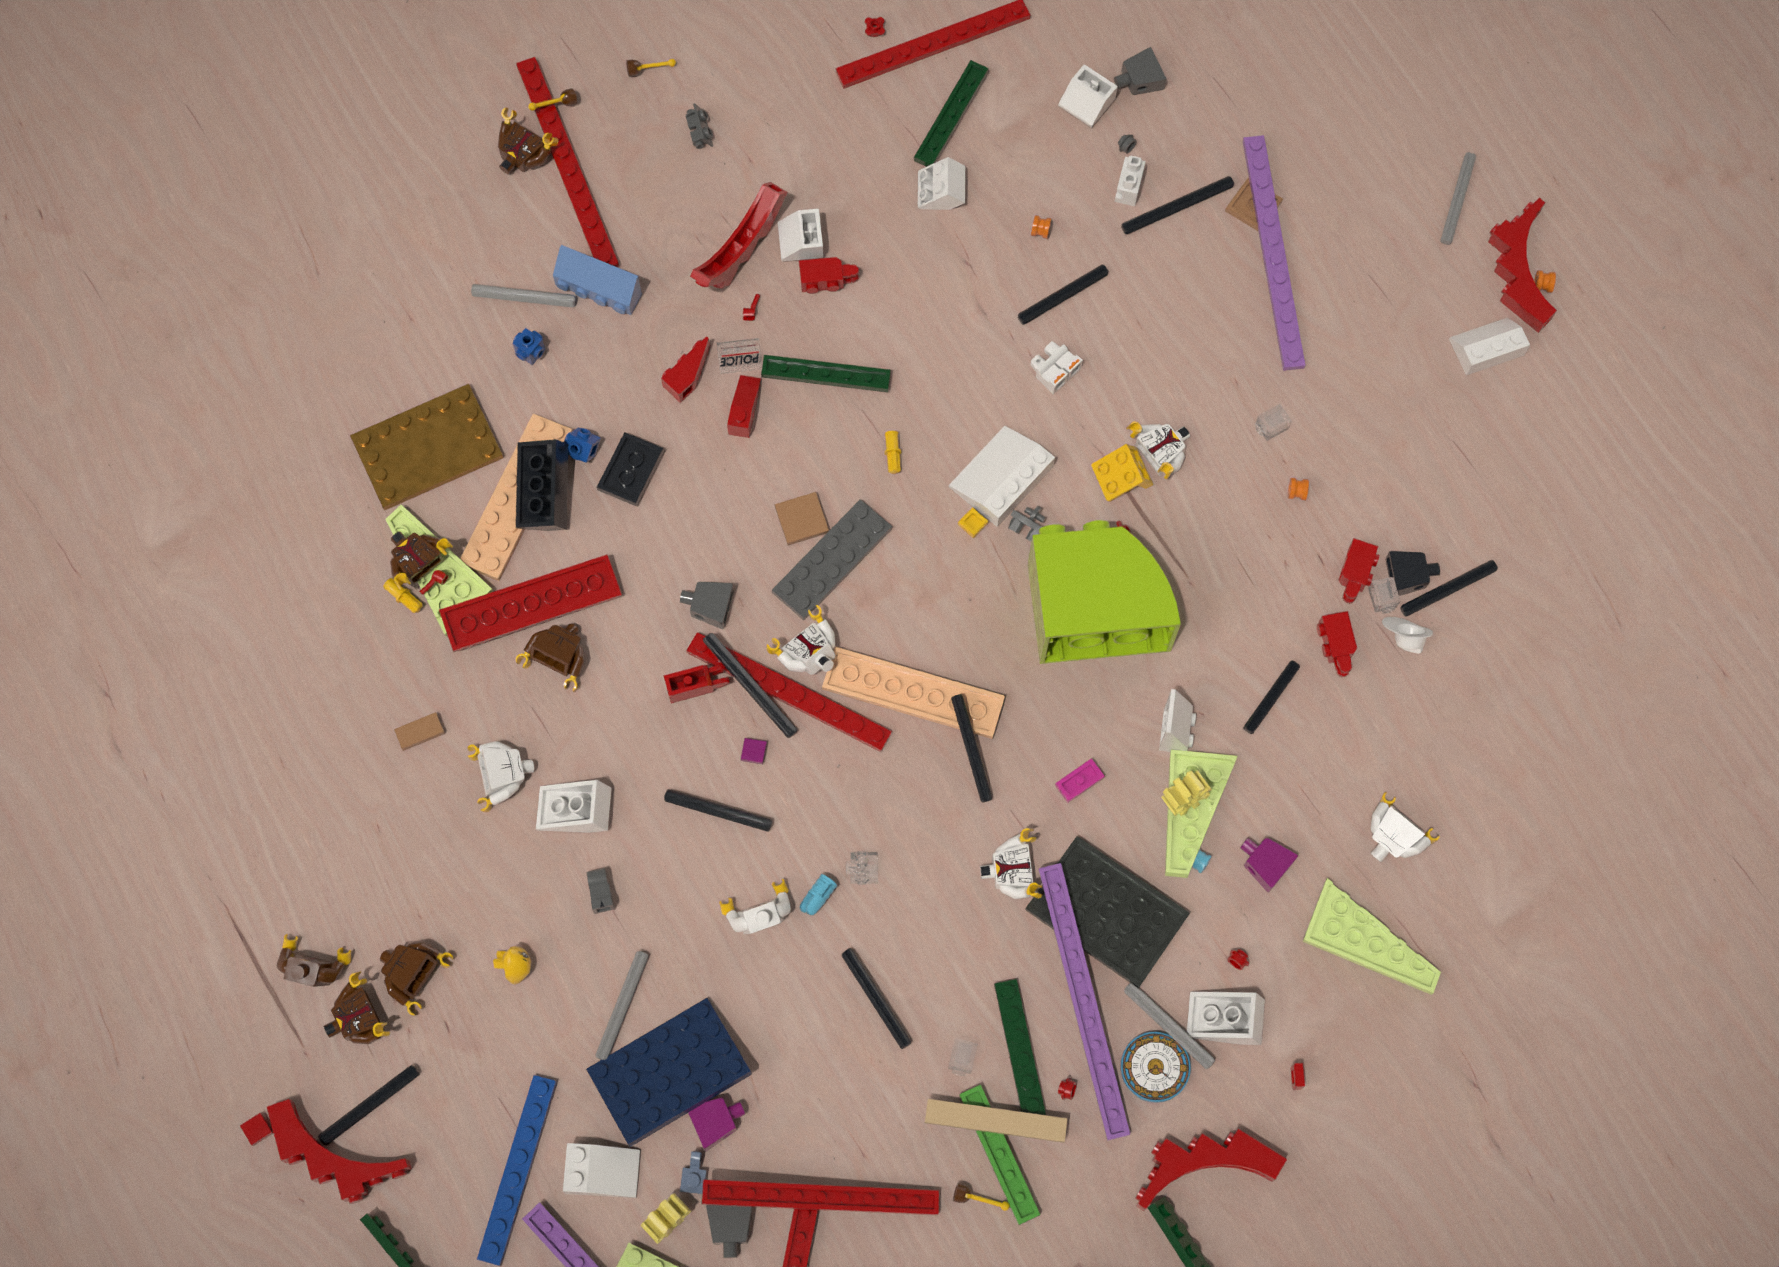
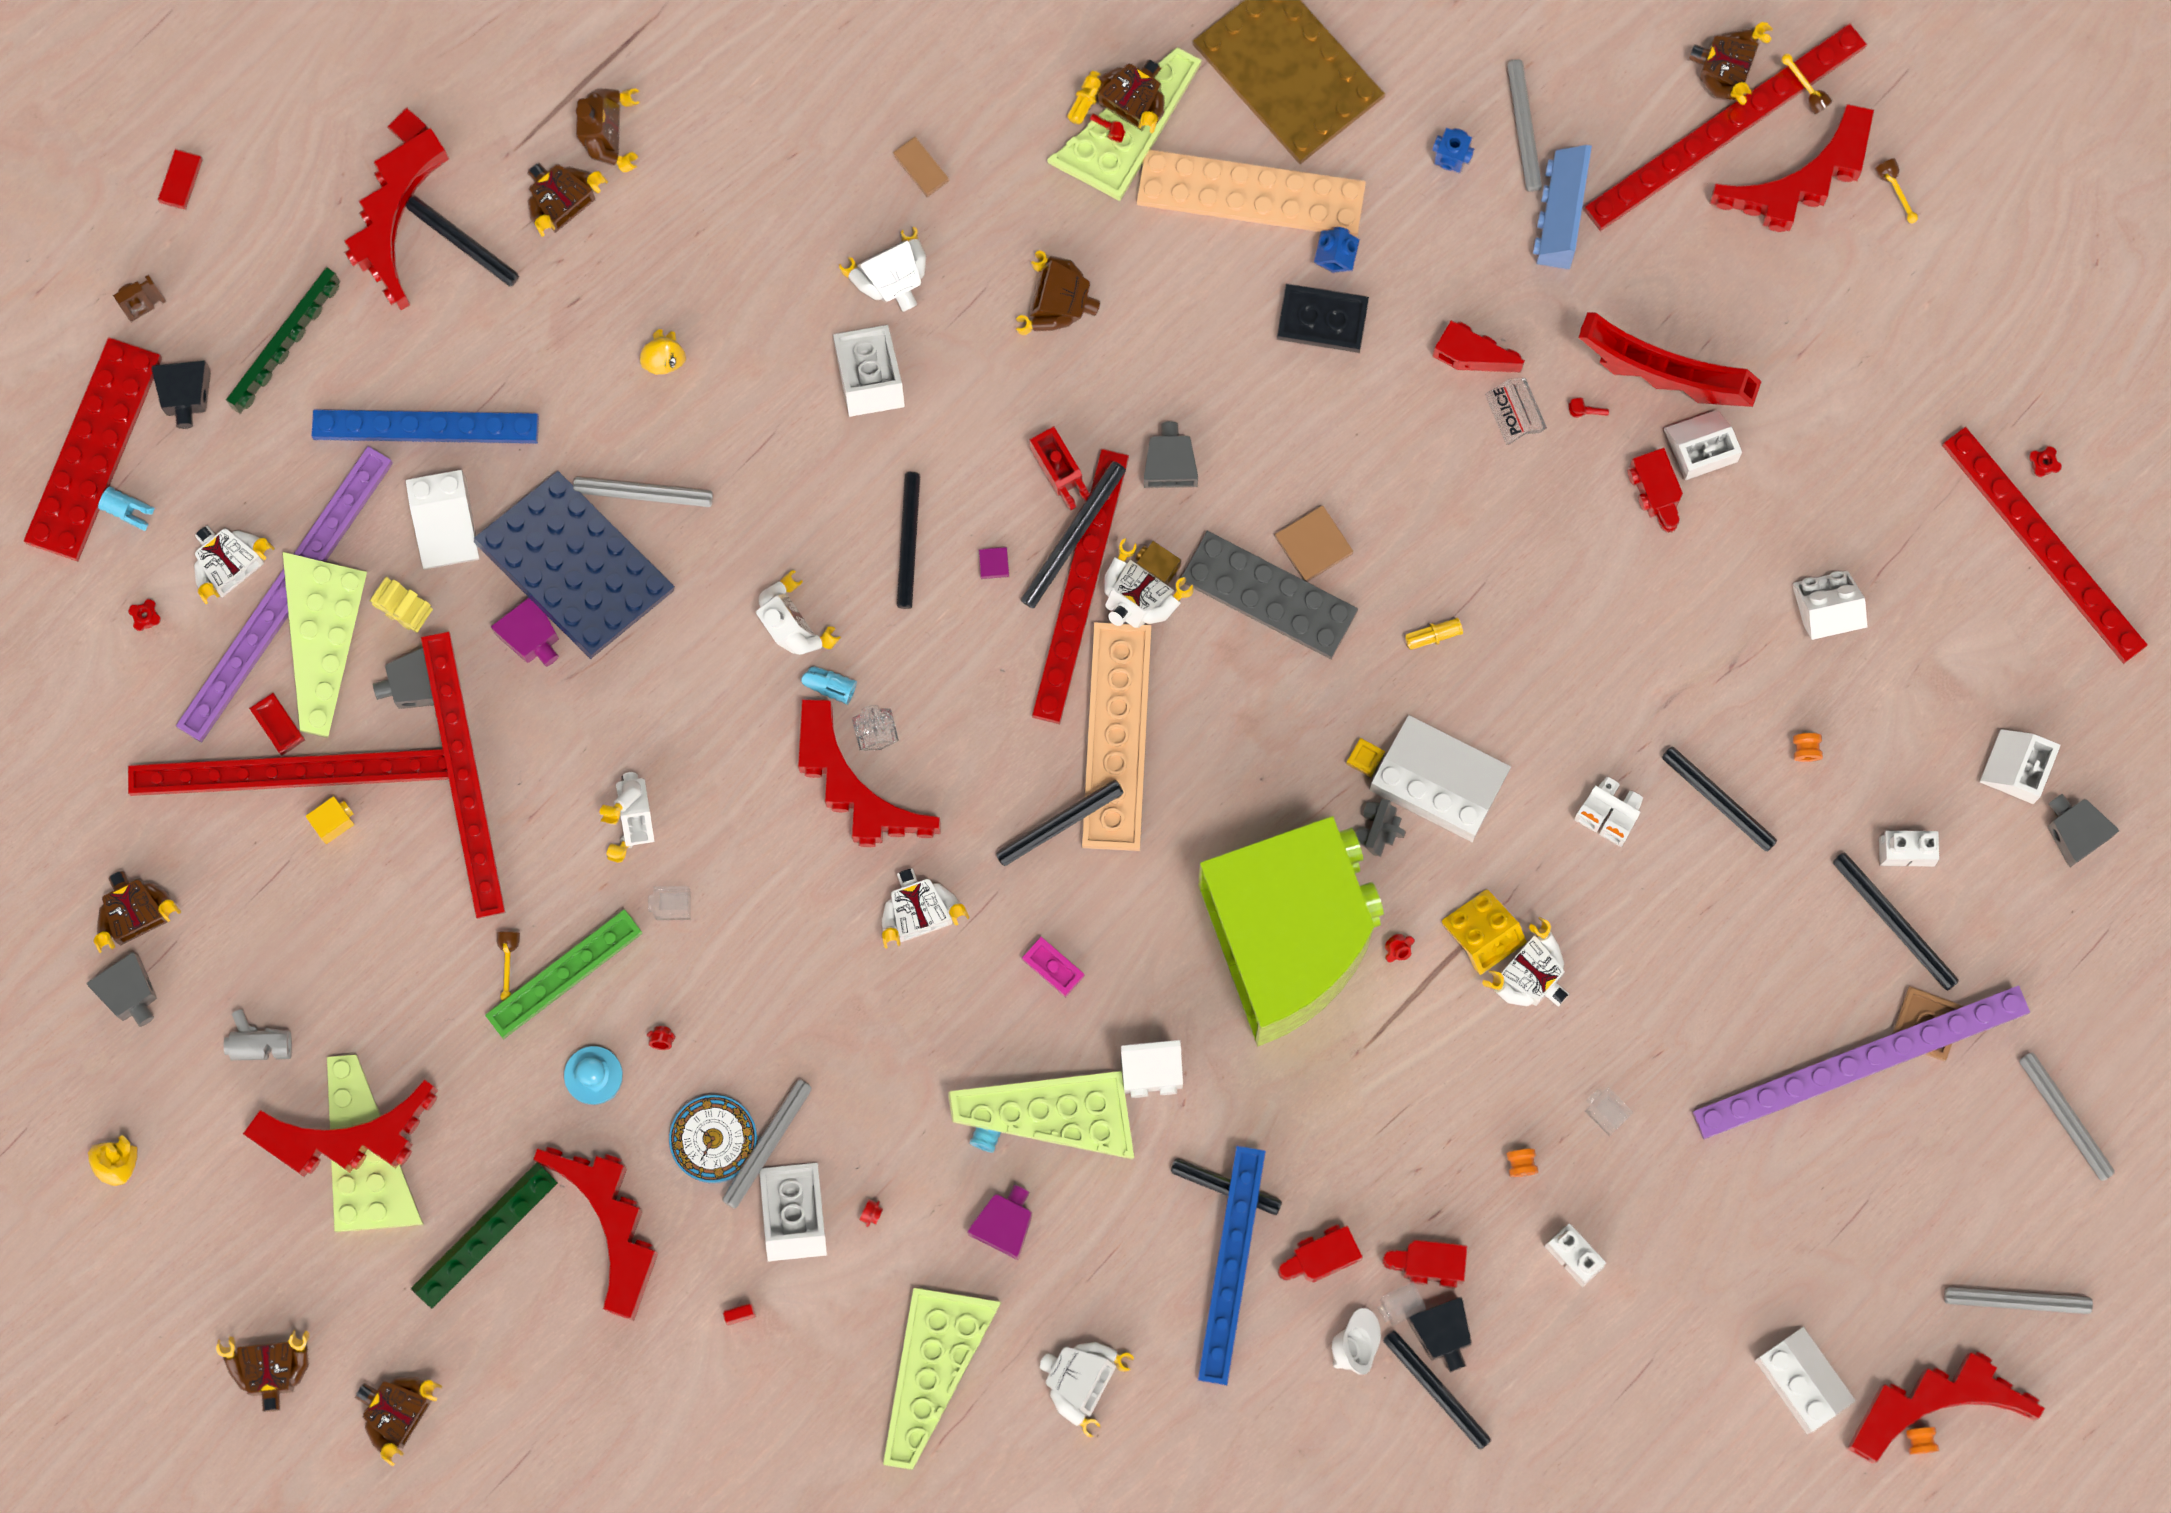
camera: 80 degrees right, 5 degrees up
(408, 970) = (626, 237): reddish brown torso -> none
(530, 603) = (1112, 247): red plate -> none
(542, 485) = (1266, 217): black slope -> none
(600, 891) = (774, 428): dark grey leg -> none
(616, 95) = (1811, 184): none -> red arch
(693, 1177) = (462, 626): sand blue plate -> none
(697, 119) = (1837, 272): dark grey hinge -> none
(743, 406) = (1447, 433): red slope -> none
(787, 628) = (1158, 562): none -> pearl gold brick
(825, 373) = (1519, 523): dark green plate -> none
(871, 913) = (871, 814): none -> red arch
(876, 998) = (720, 785): black axle -> none
(888, 1067) = (635, 815): none -> white torso
(951, 114) = (1942, 592): dark green plate -> none
(996, 1120) = (600, 958): tan tile -> none
(1019, 1047) = (697, 970): dark green plate -> none
(1084, 1002) = (771, 1031): medium lavender plate -> none
(1085, 1149) = (593, 1075): none -> medium azure plate
(1115, 912) = (893, 1038): pearl dark grey plate -> none
(1127, 143) = (1967, 833): dark grey plate -> none
(1186, 793) = (1056, 1093): light yellow gear -> none
(1333, 704) = (1231, 1265): none -> blue plate
(1337, 135) = (2067, 1116): none -> light grey axle
(1372, 469) = (1574, 1251): none -> white hips

